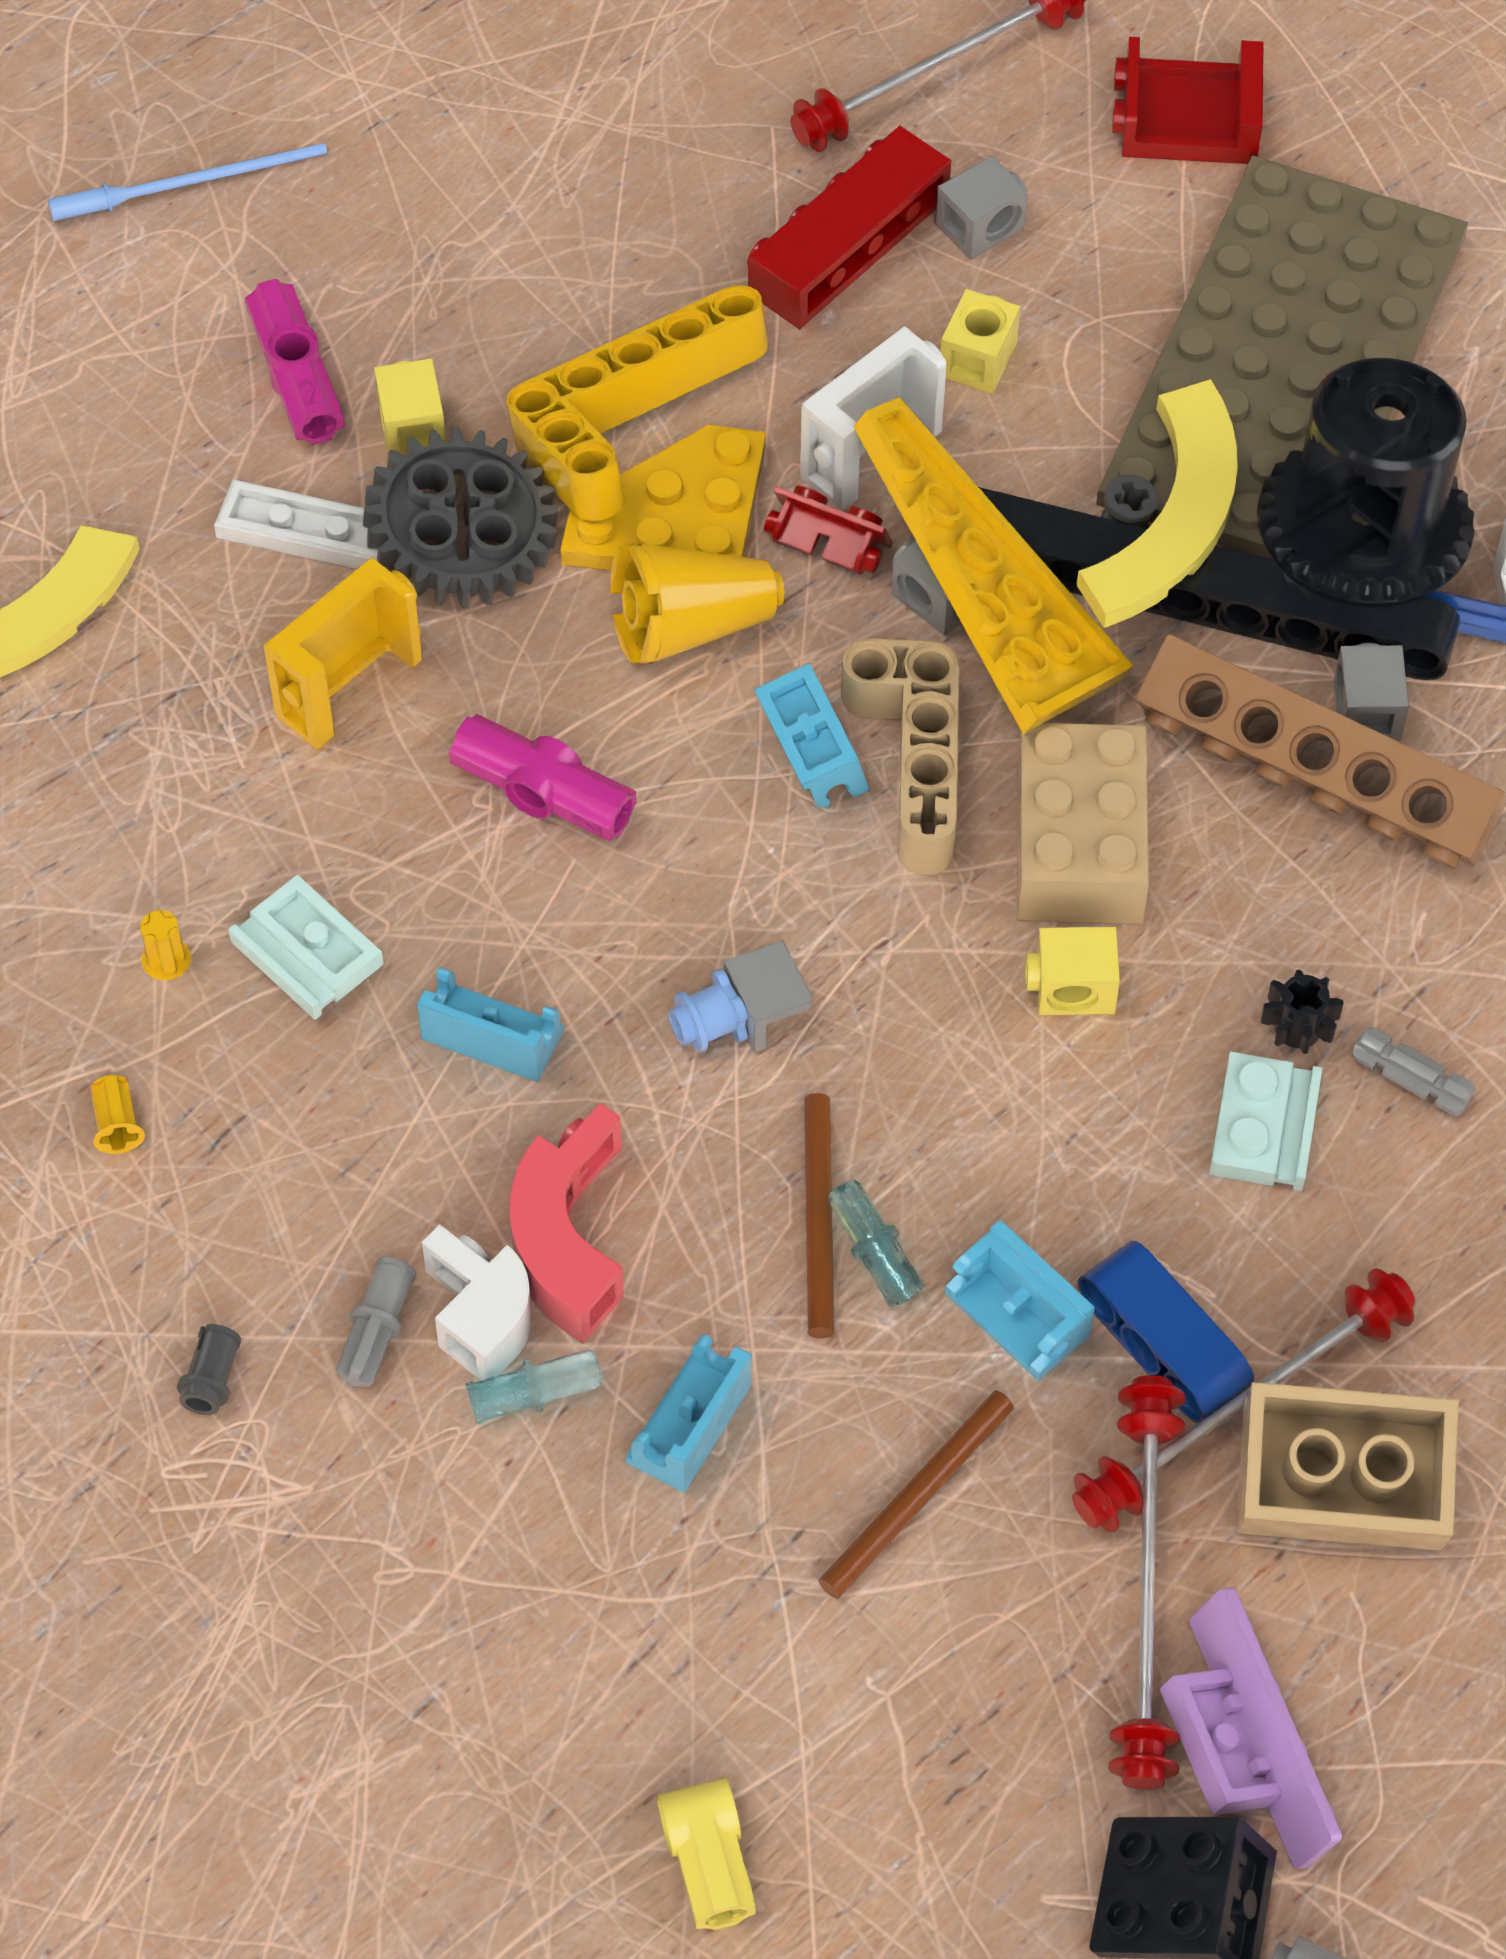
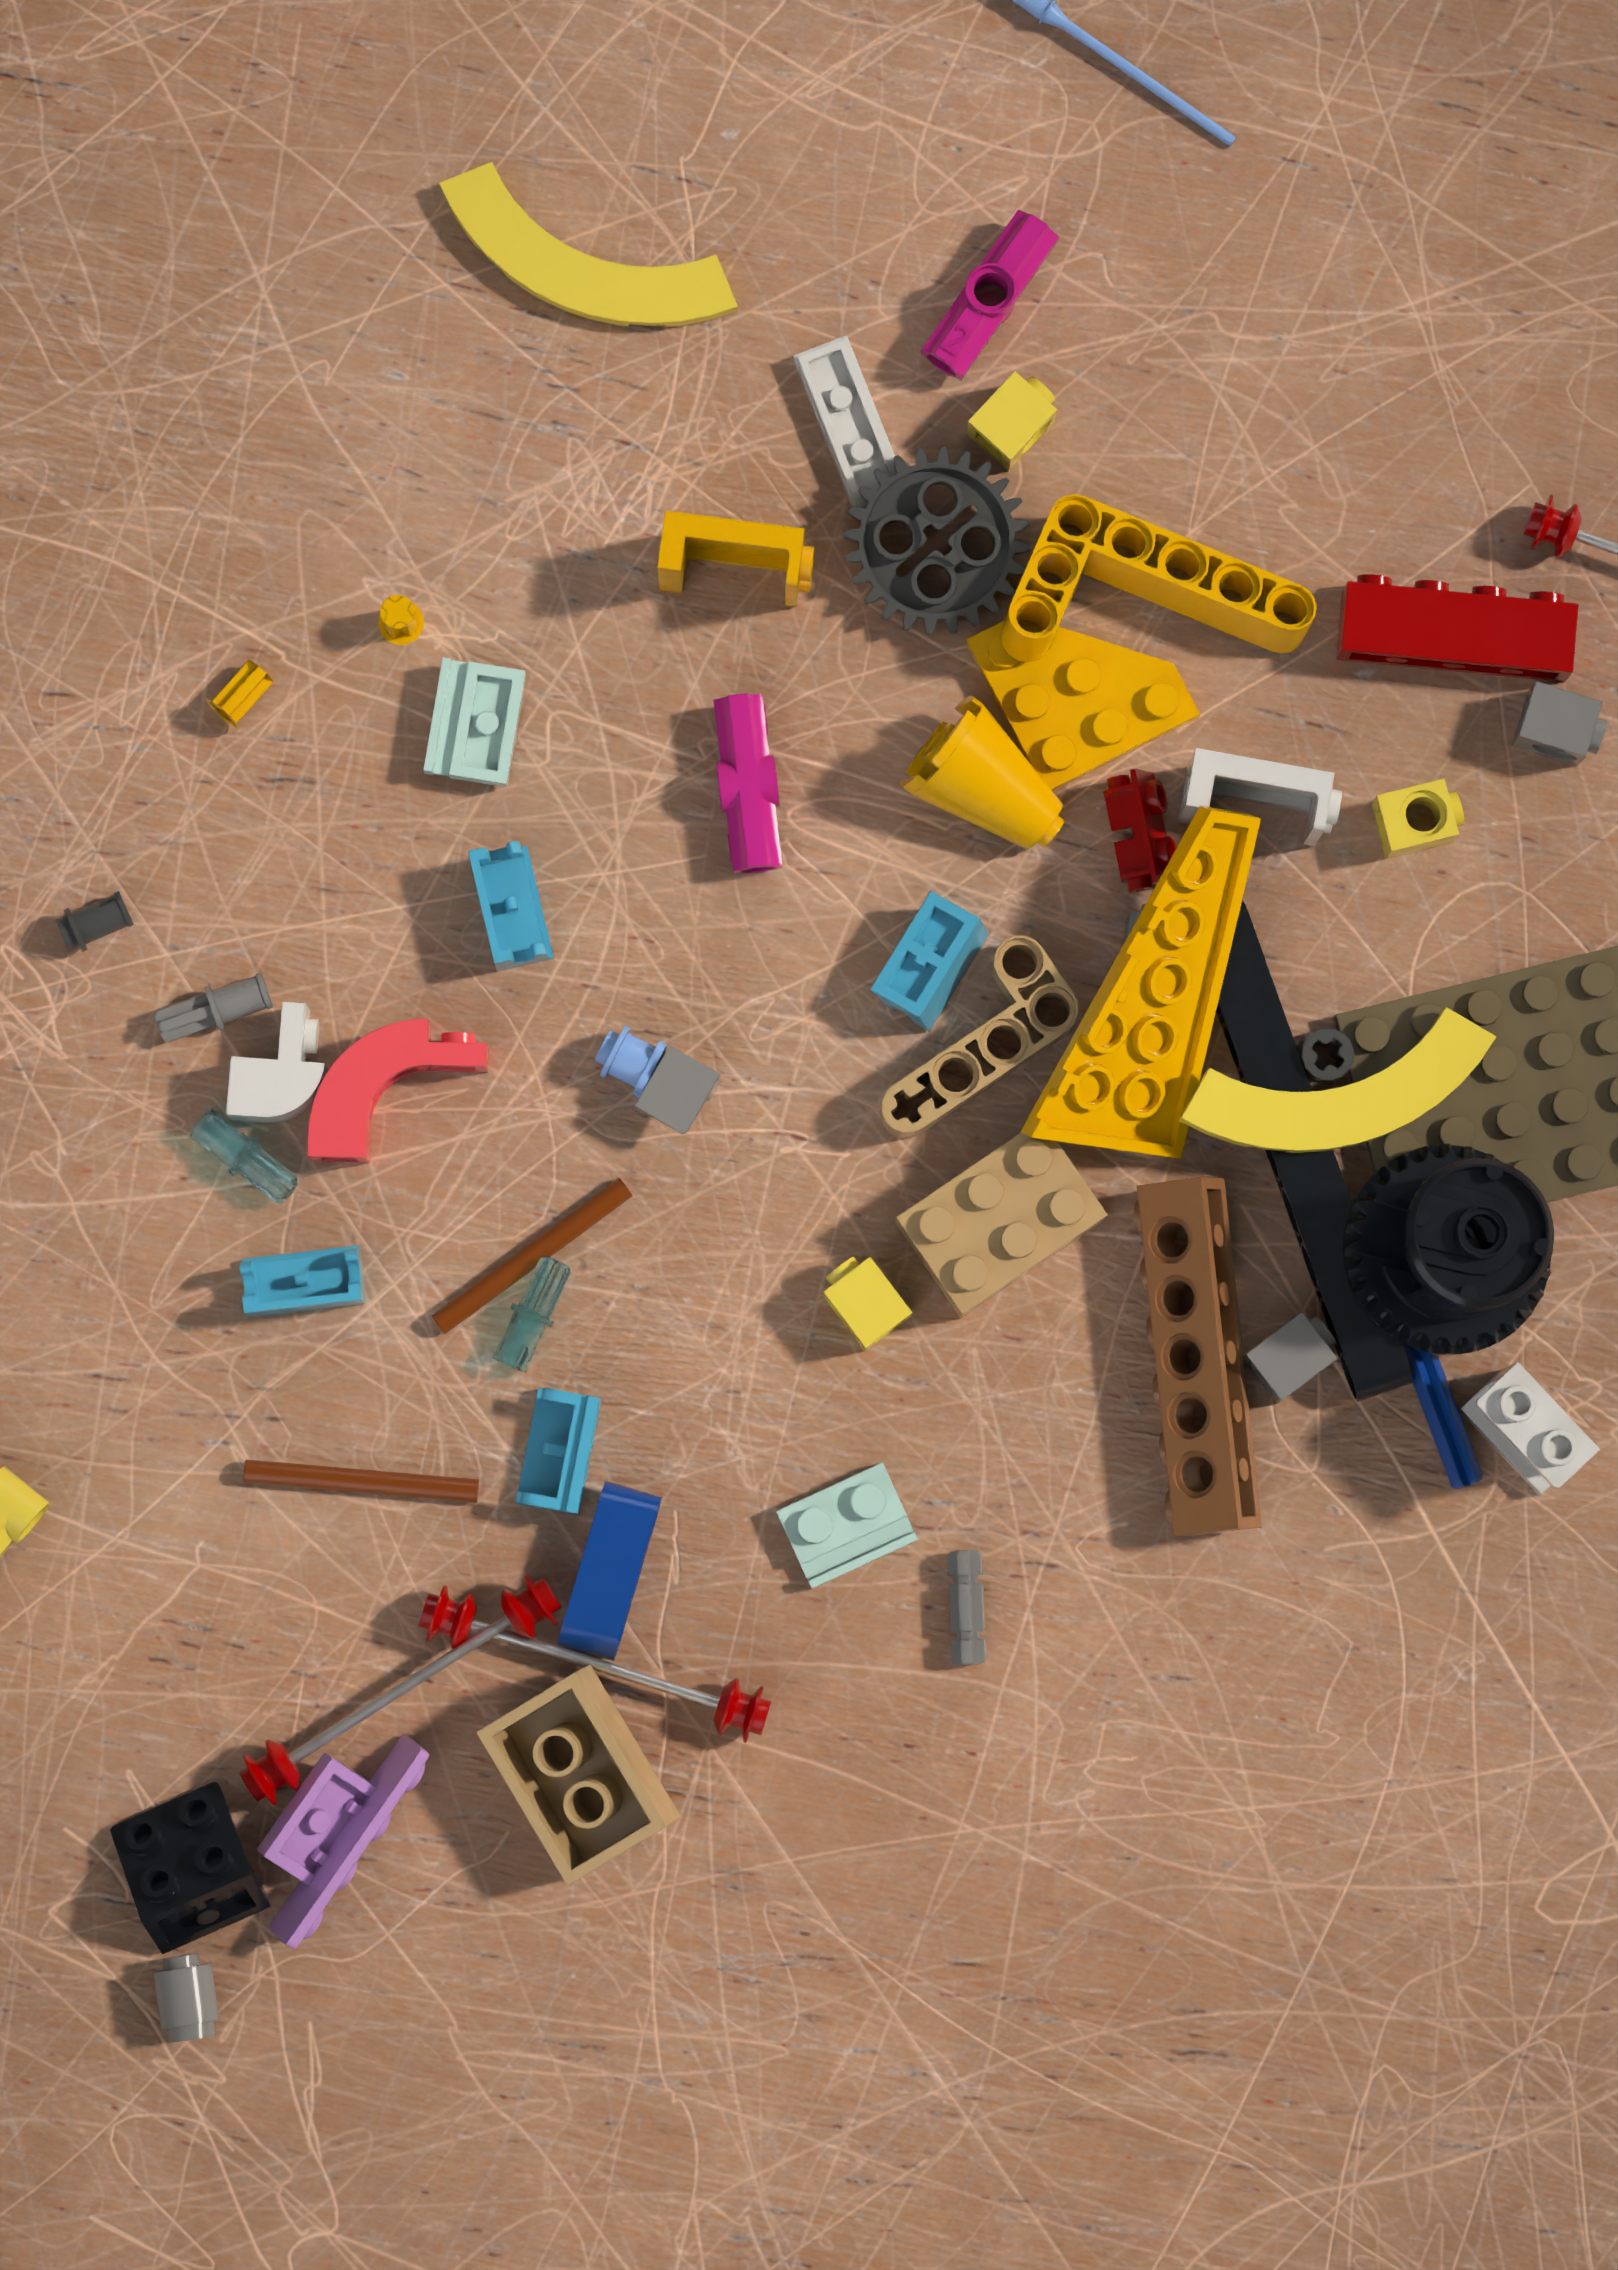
camera: 50 degrees right, 25 degrees up
(1301, 1011) = (966, 1482): black gear -> none

